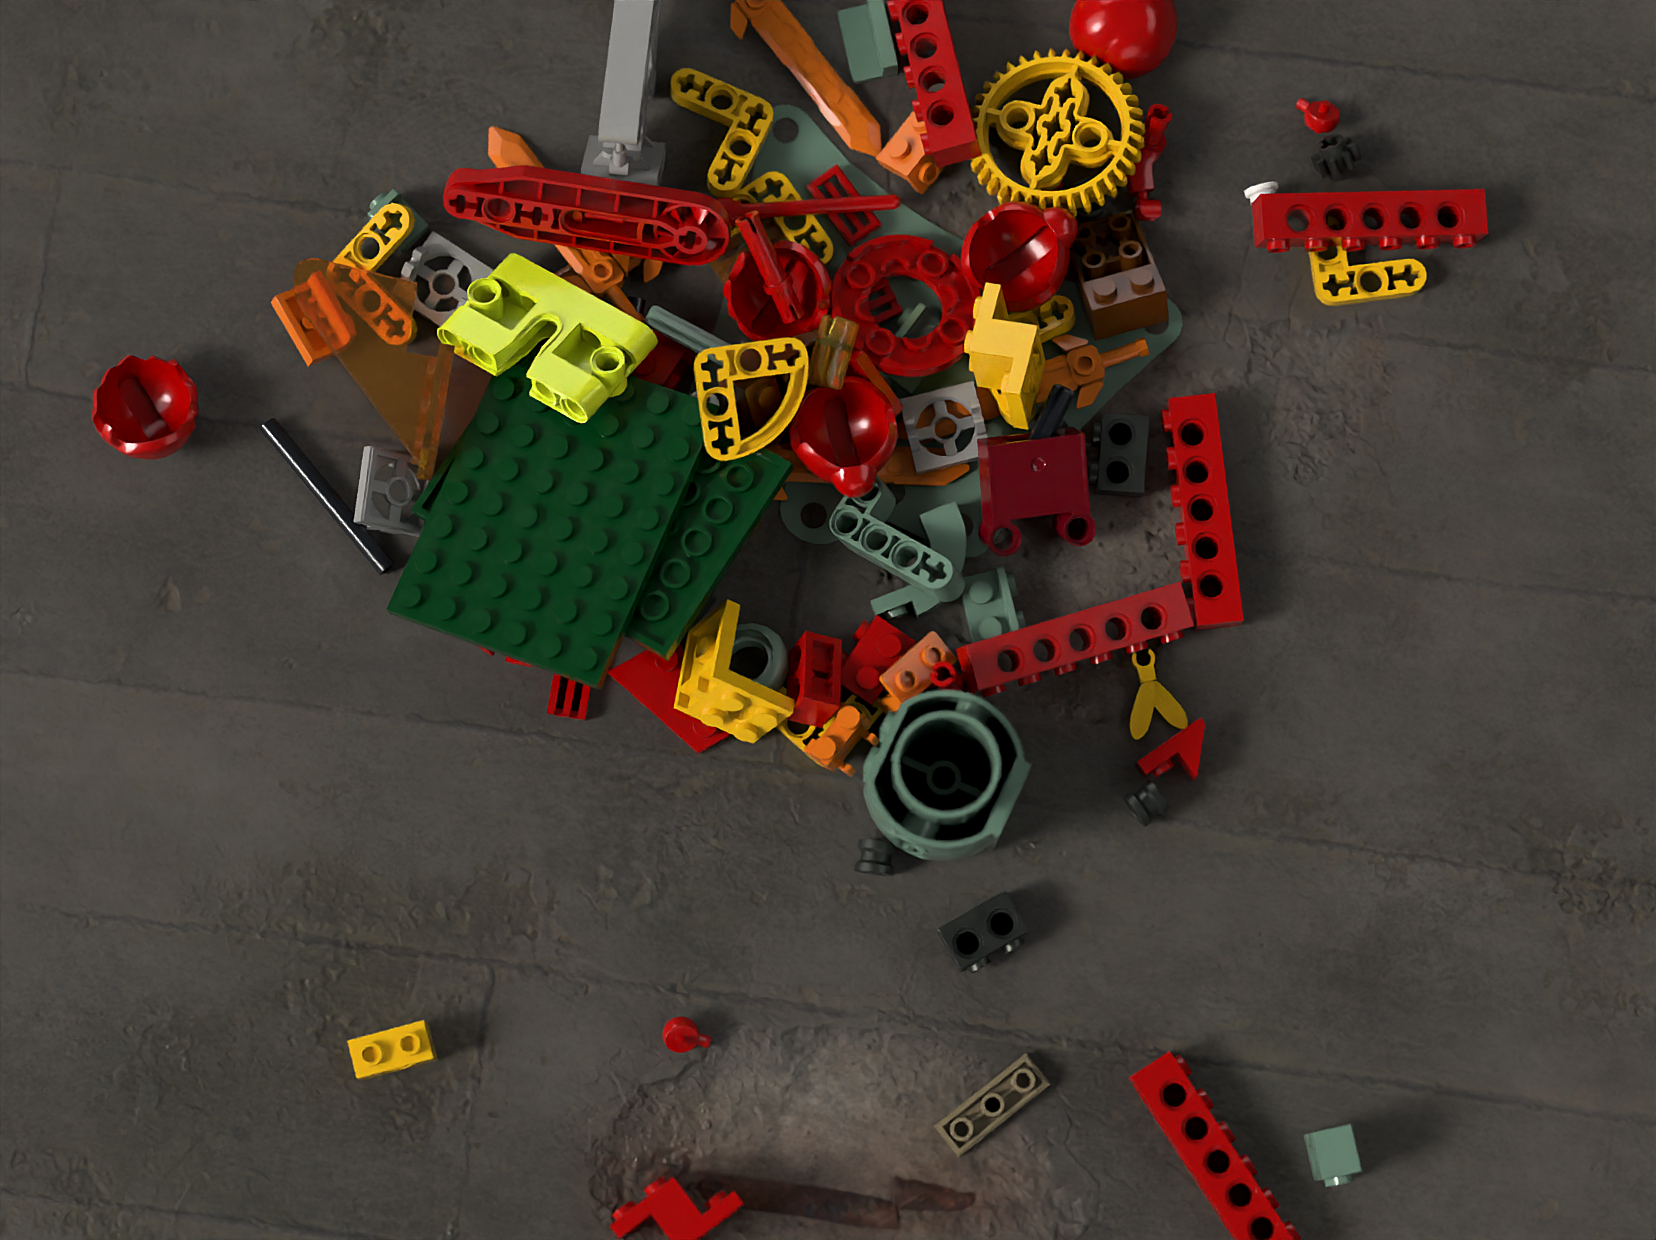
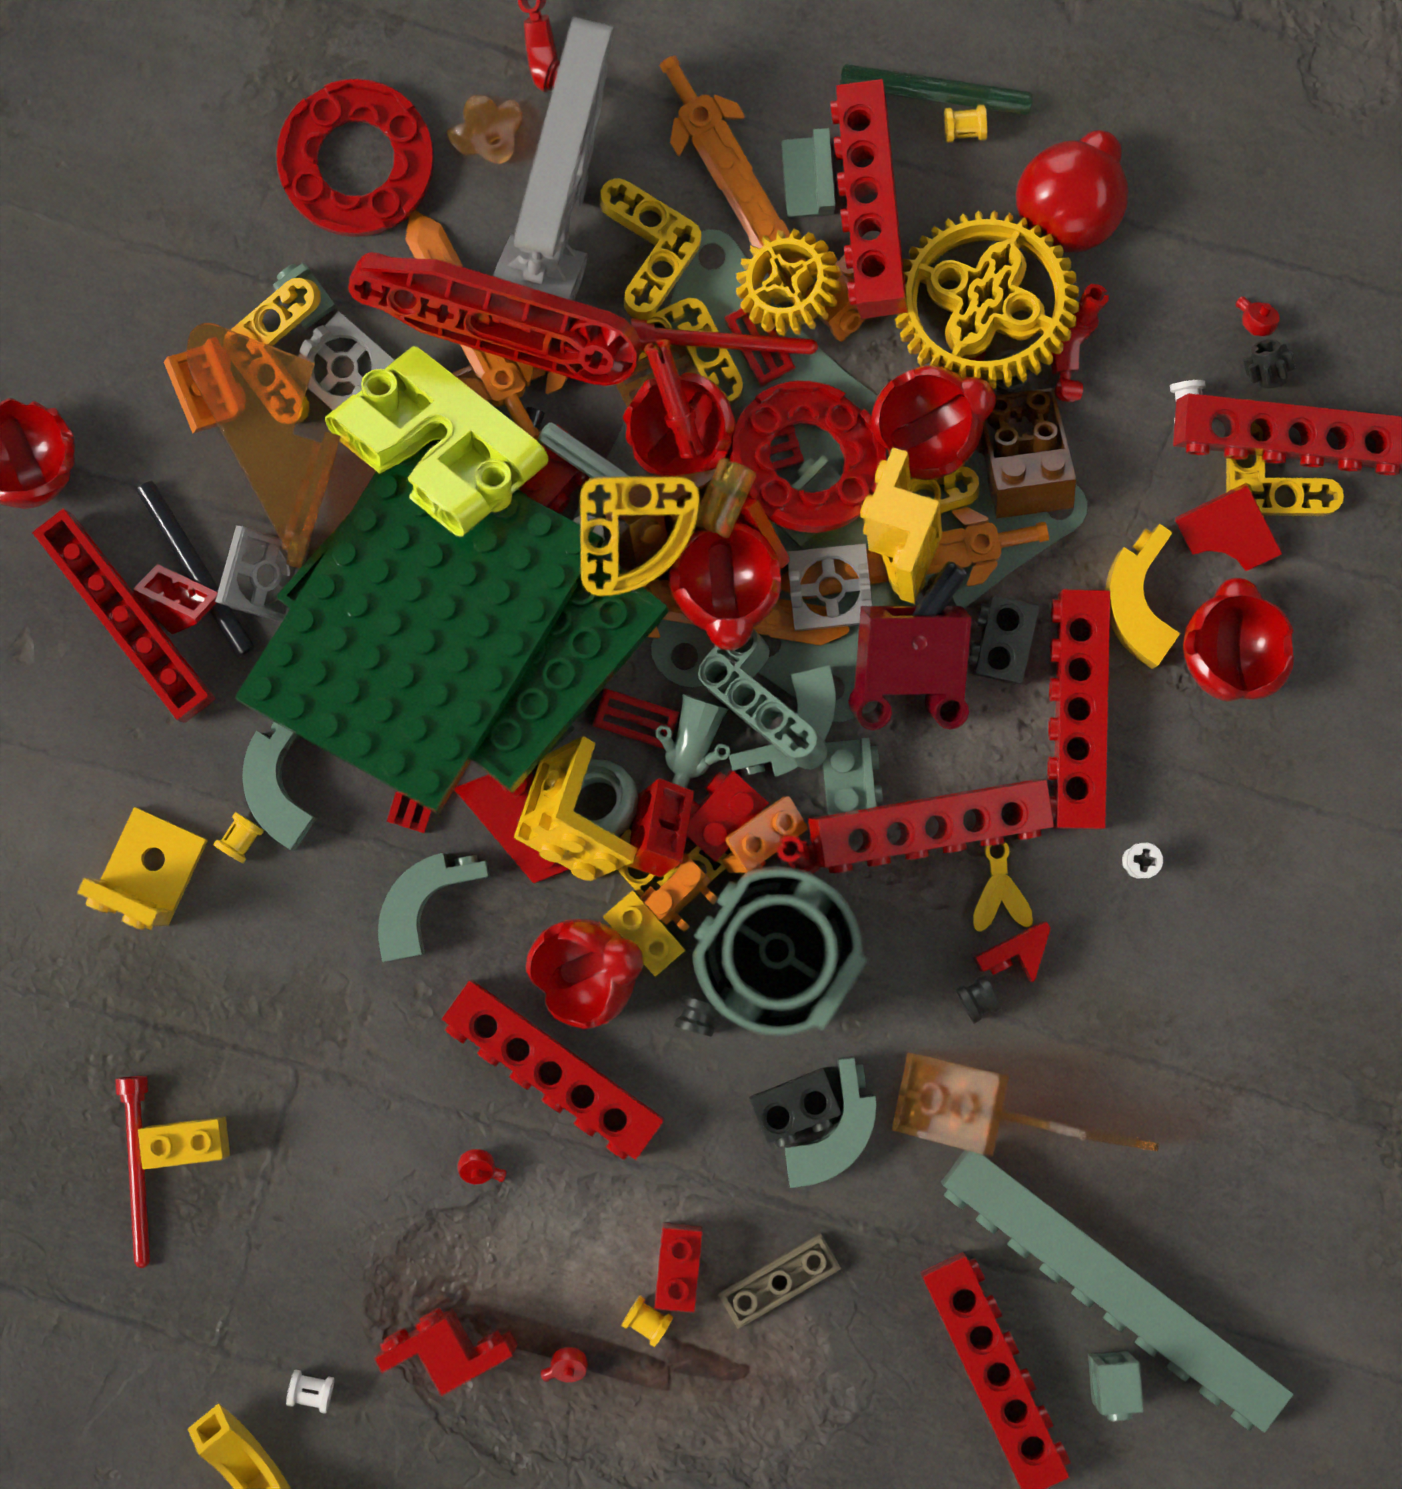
camera: 10 degrees right, 5 degrees up
(266, 549) = (124, 615): none -> red brick
(312, 527) = (174, 598): none -> red slope
(320, 815) = (134, 890): none -> yellow bracket
(334, 1011) = (132, 1093): none -> red piece
(405, 748) = (239, 837): none -> yellow bush
(423, 31) = (355, 102): none -> red plate
(435, 715) = (265, 789): none -> sand green arch
(548, 35) = (483, 125): none -> clear orange plate
(579, 779) = (402, 909): none -> sand green arch
(658, 874) = (477, 1001): none -> red brick
(760, 827) = (584, 971): none -> red piece
(796, 1216) = (566, 1365): none -> red piece
(806, 587) = (605, 709): none -> red tile
(812, 784) = (639, 924): none -> yellow brick
(834, 590) = (697, 728): none -> sand green piece
(837, 163) = (774, 289): none -> yellow gear
(868, 1161) = (647, 1321): none -> yellow bush
(892, 1103) = (678, 1267): none -> red brick
(1022, 975) = (833, 1153): none -> sand green arch
(1147, 906) = (965, 1107): none -> clear orange piece
(1238, 416) = (1130, 615): none -> yellow arch
(1293, 640) = (1151, 852): none -> white bush
(1320, 1064) = (1117, 1289): none -> sand green brick
(1324, 317) = (1230, 526): none -> red tile
(1346, 426) = (1239, 644): none -> red piece

